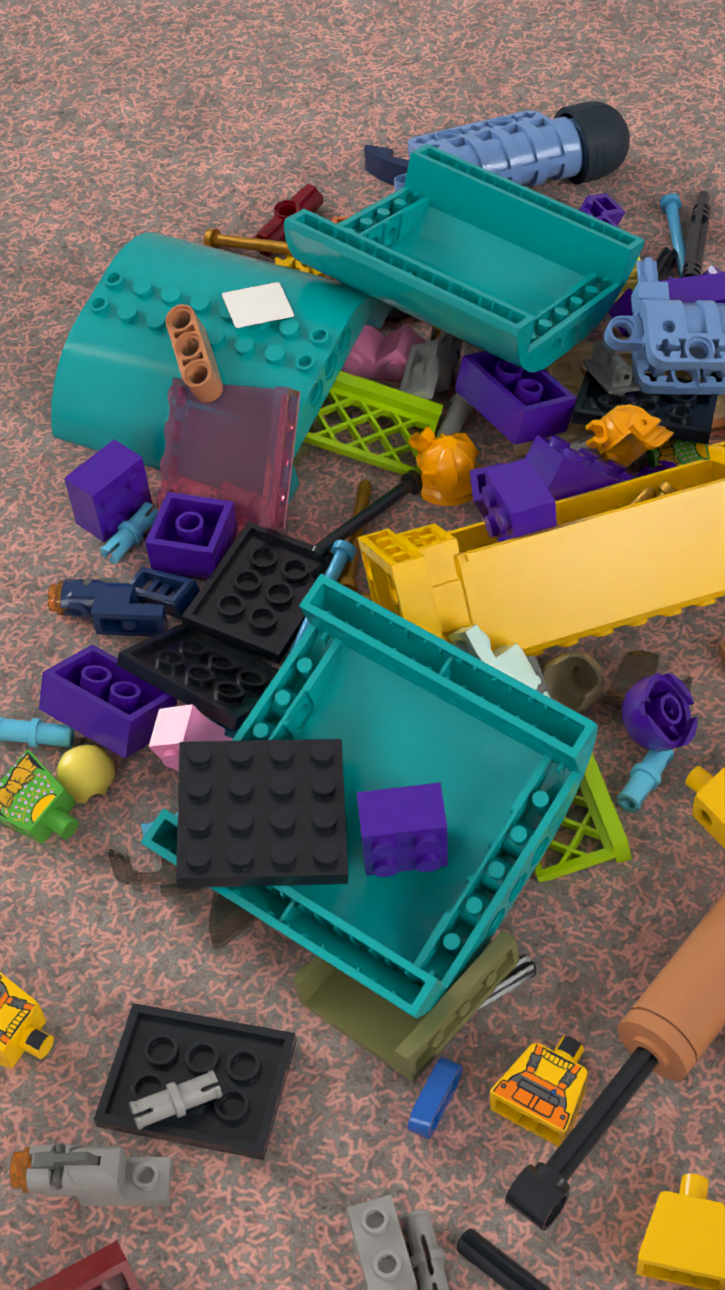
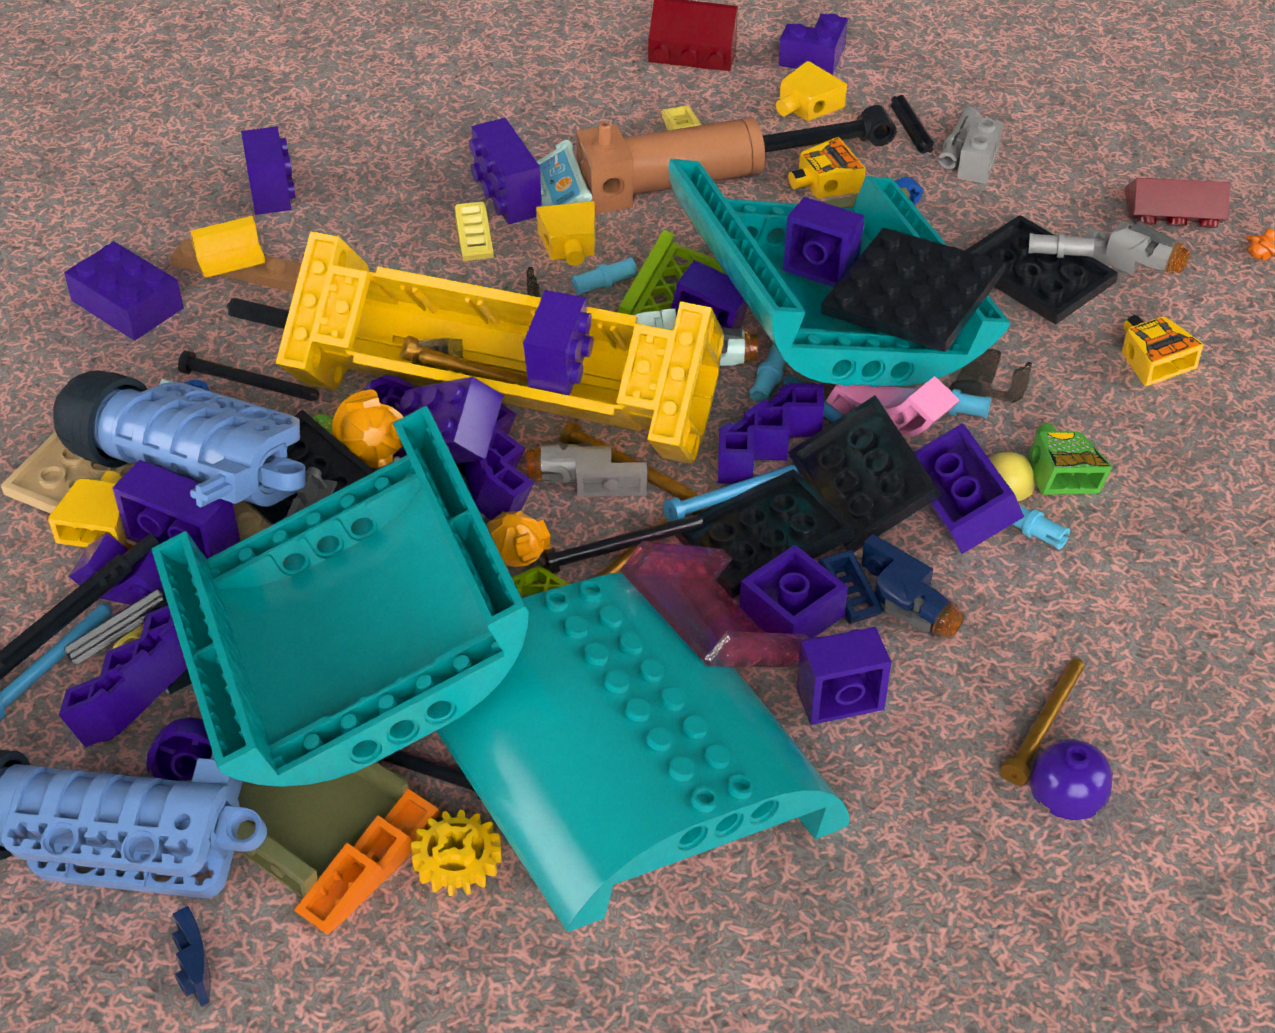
camera: 150 degrees left, 5 degrees down
(187, 338) = (692, 645): nougat beam -> none
(215, 239) = (483, 985): pearl gold bar -> none
(257, 304) = (586, 663): white sticker -> none
(306, 198) = (358, 956): dark red piece -> none
(659, 713) = (571, 273): dark purple cylinder -> none

